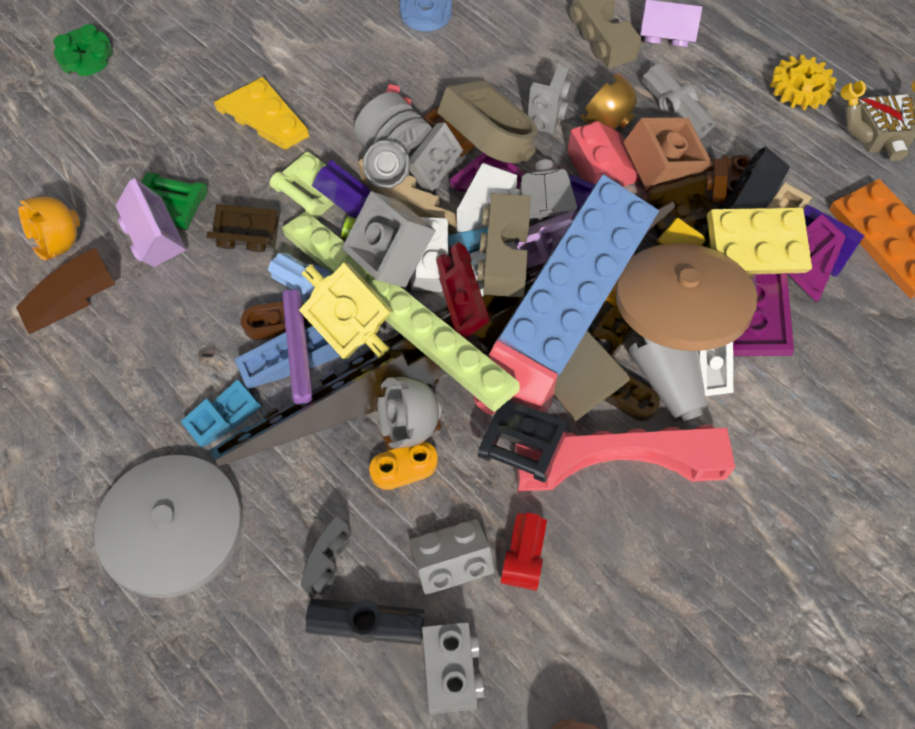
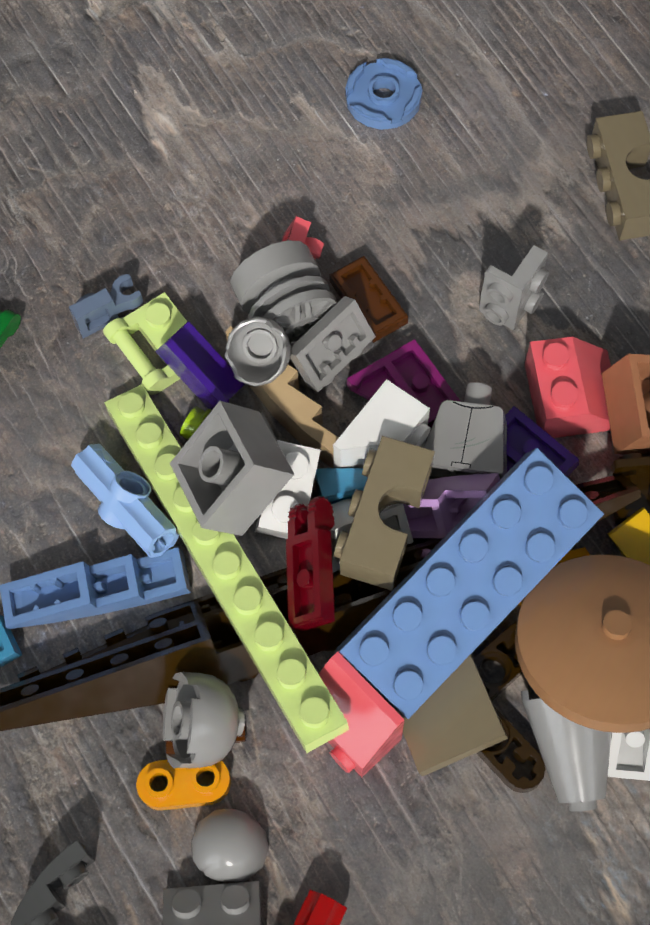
camera: 15 degrees right, 5 degrees up
(244, 226) = (54, 393): dark brown bracket -> none
(261, 169) = (97, 309): none -> sand blue plate
(264, 111) = (122, 218): yellow wing -> none
(268, 314) = (66, 535): reddish brown plate -> none
(297, 347) = (79, 592): medium lavender axle -> none
(345, 310) = (152, 557): light yellow plate -> none
(448, 499) = (229, 845): none -> light grey hair
(489, 121) = (422, 257): dark tan window -> none
(528, 428) = (351, 782): black plate -> none
(612, 104) = (603, 311): pearl gold cylinder -> none
(693, 453) = (571, 861): coral arch -> none

